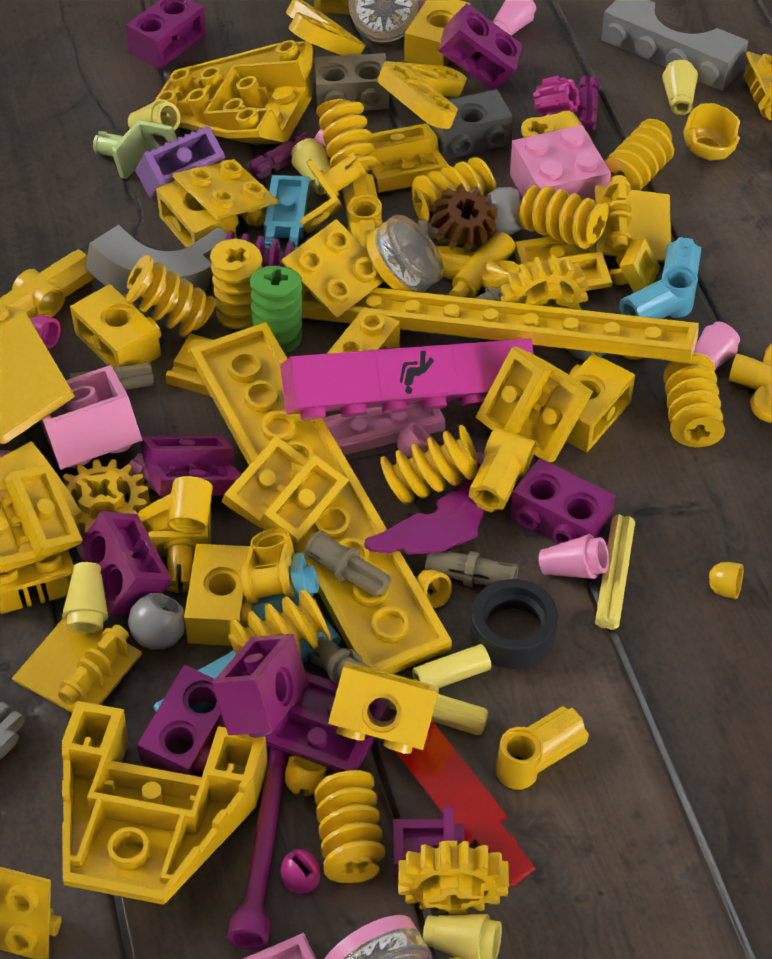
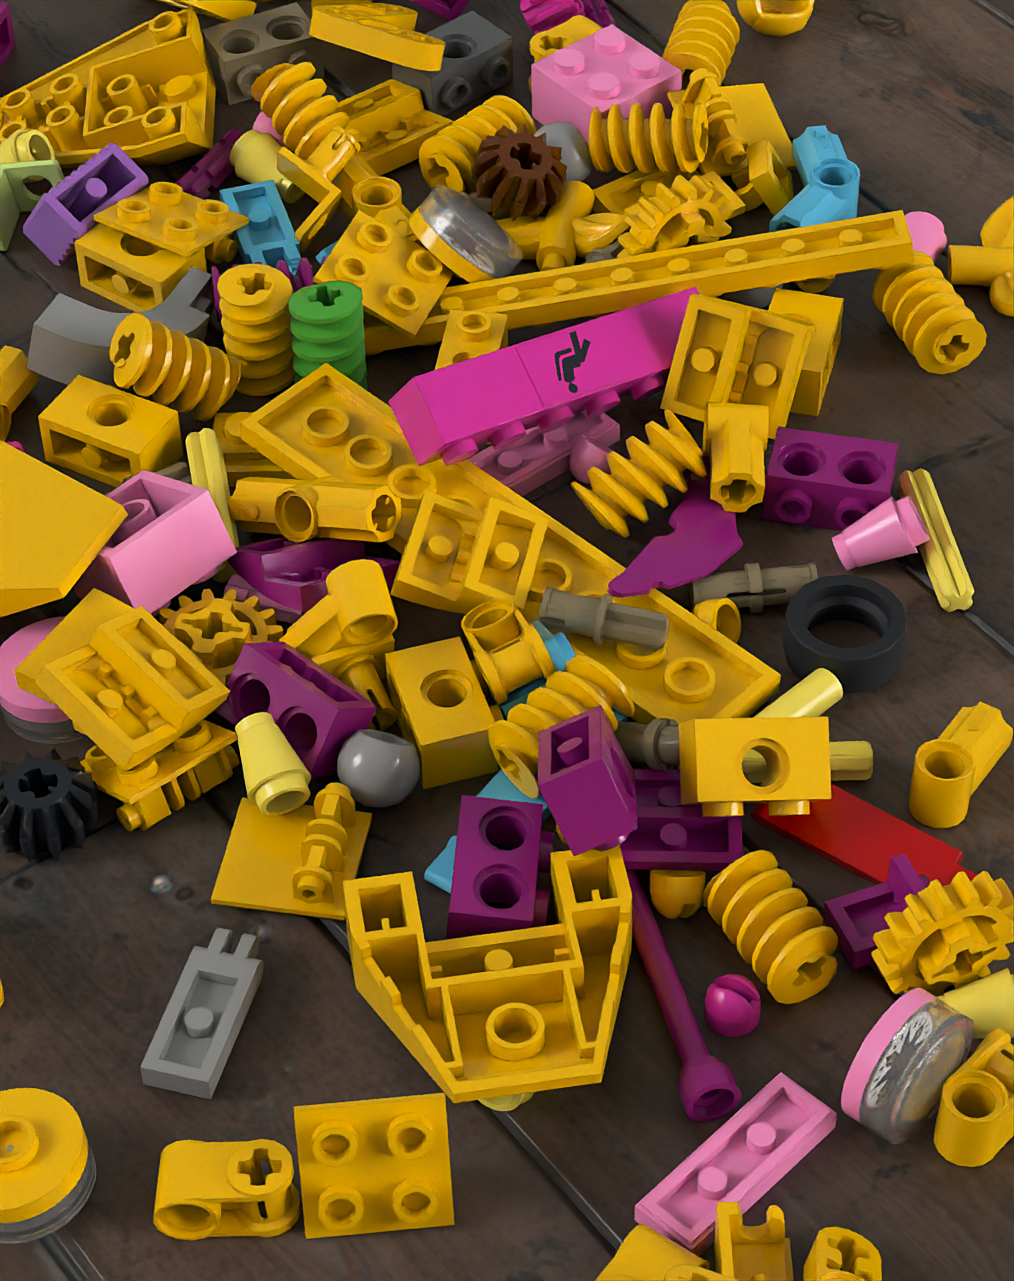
camera: 20 degrees left, 5 degrees down
(156, 392) = (209, 472): none -> light yellow axle
(207, 425) = (315, 508): none -> yellow piece

